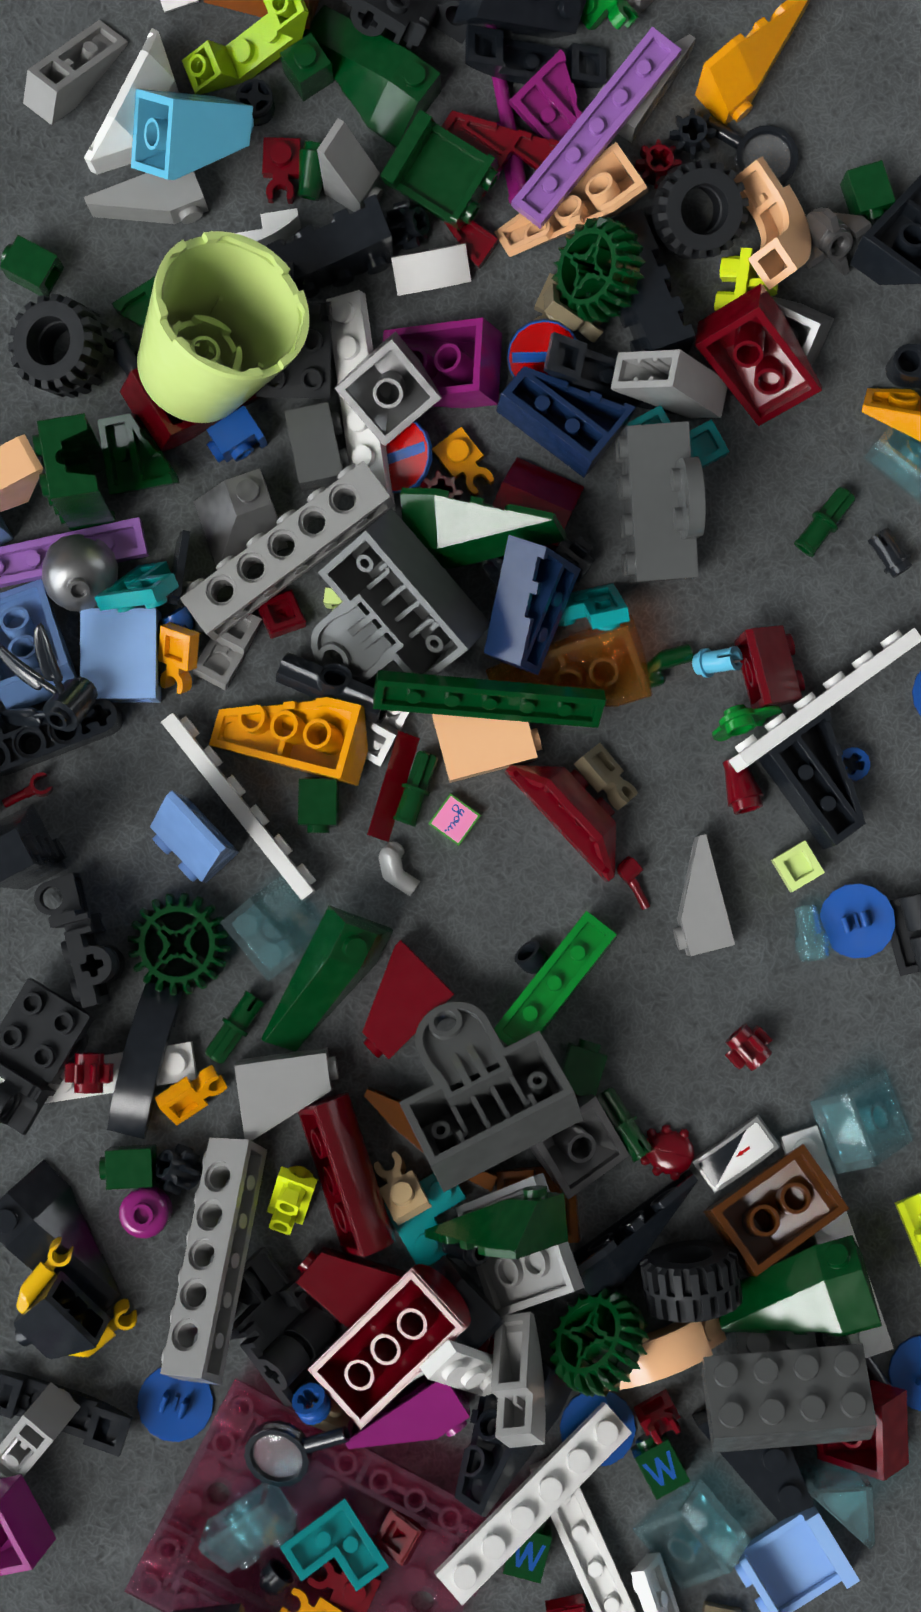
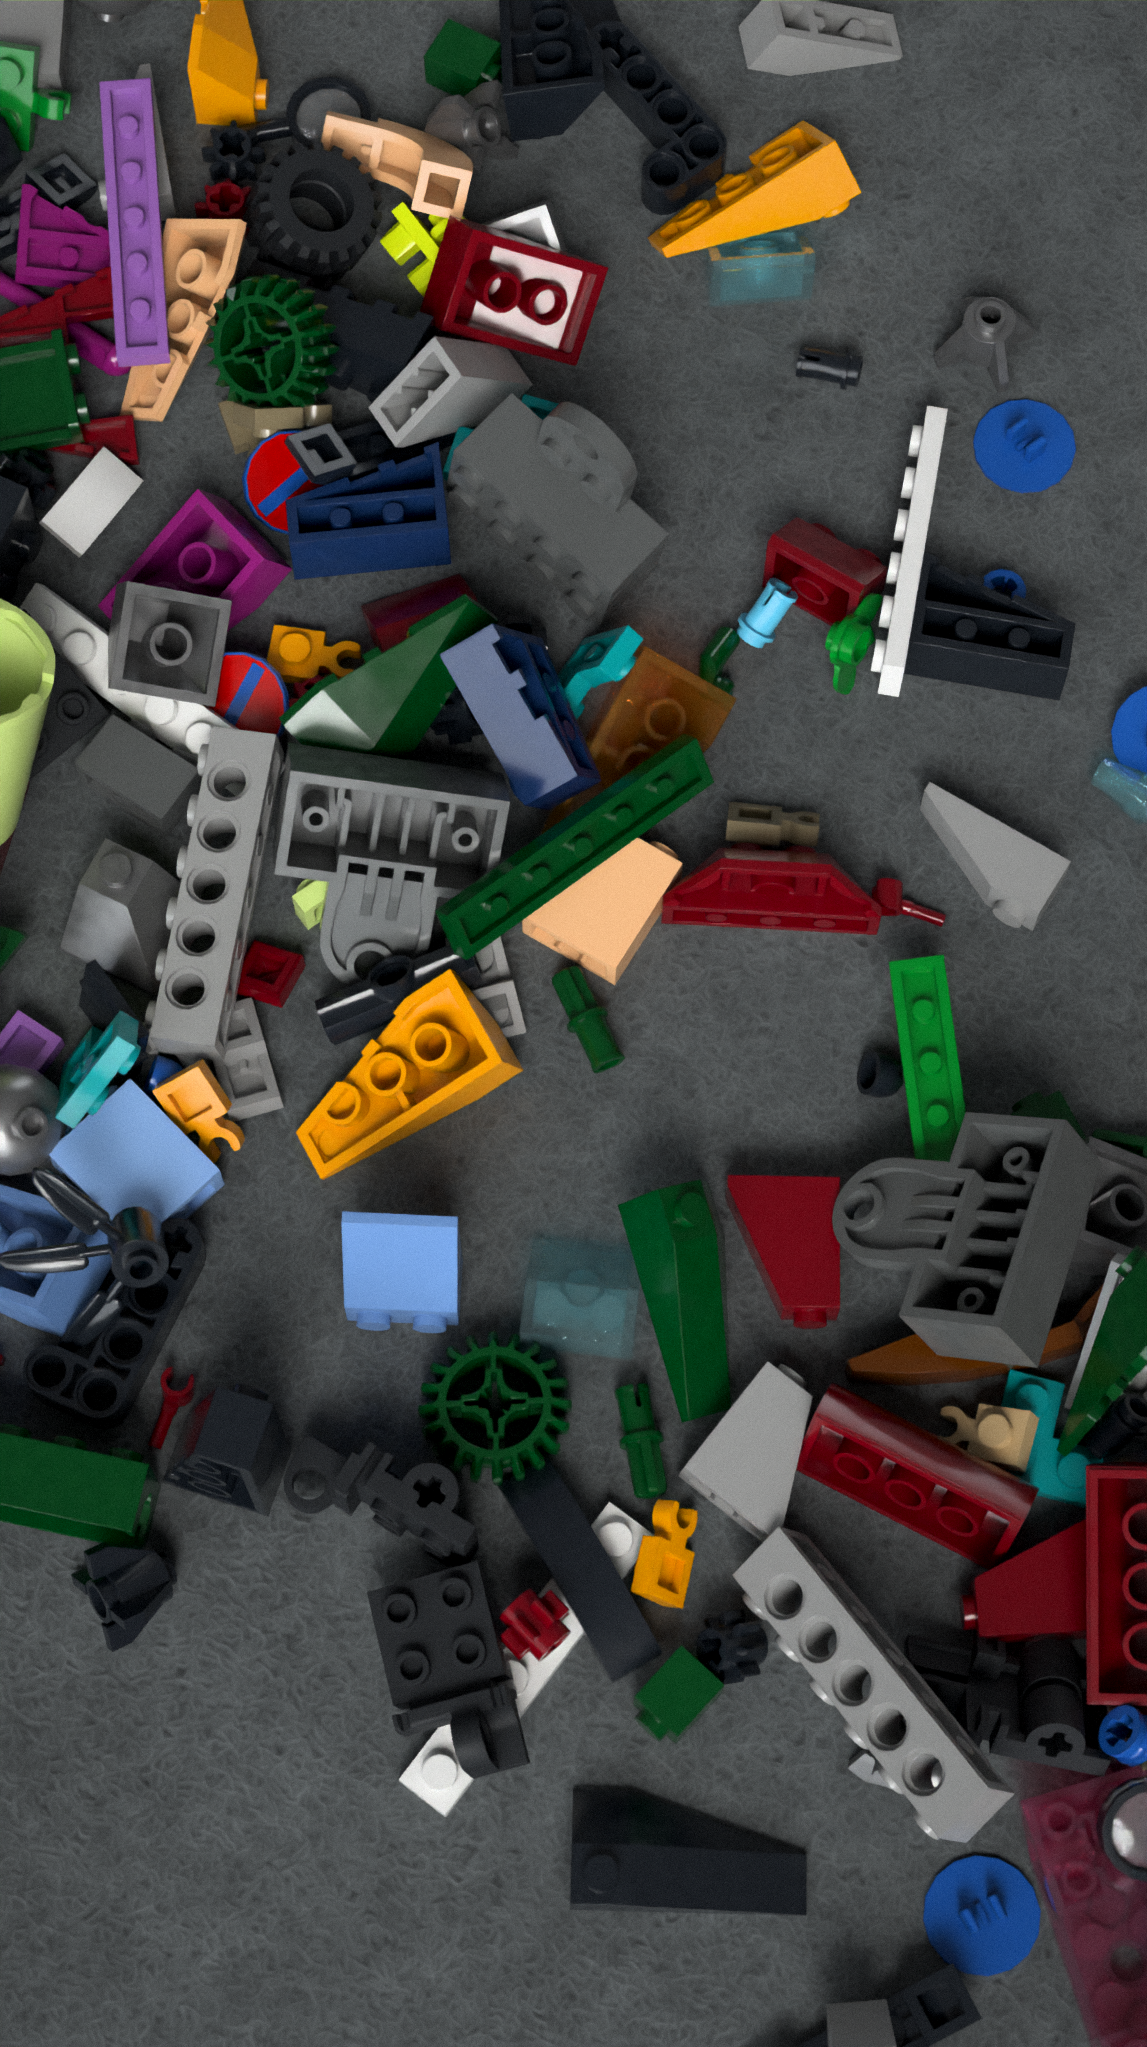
camera: 40 degrees left, 15 degrees down
(61, 1316) = (763, 1925): black torso -> none
(145, 1212) = (742, 1725): magenta head -> none
(230, 792) = (497, 1214): white plate -> none
(235, 436) = (44, 838): blue brick -> none
(291, 1198) = (884, 1556): neon yellow hips -> none
(318, 804) = (500, 1125): dark green brick -> none
(391, 790) = (560, 1040): dark red sticker -> none
(392, 868) = (645, 1122): light grey arm -> none
(454, 819) = (658, 1014): bright pink tile -> none
(742, 790) = (919, 714): dark red cone -> none
(797, 866) = (1051, 737): yellowish green plate -> none
(825, 521) = (735, 394): dark green axle -> none

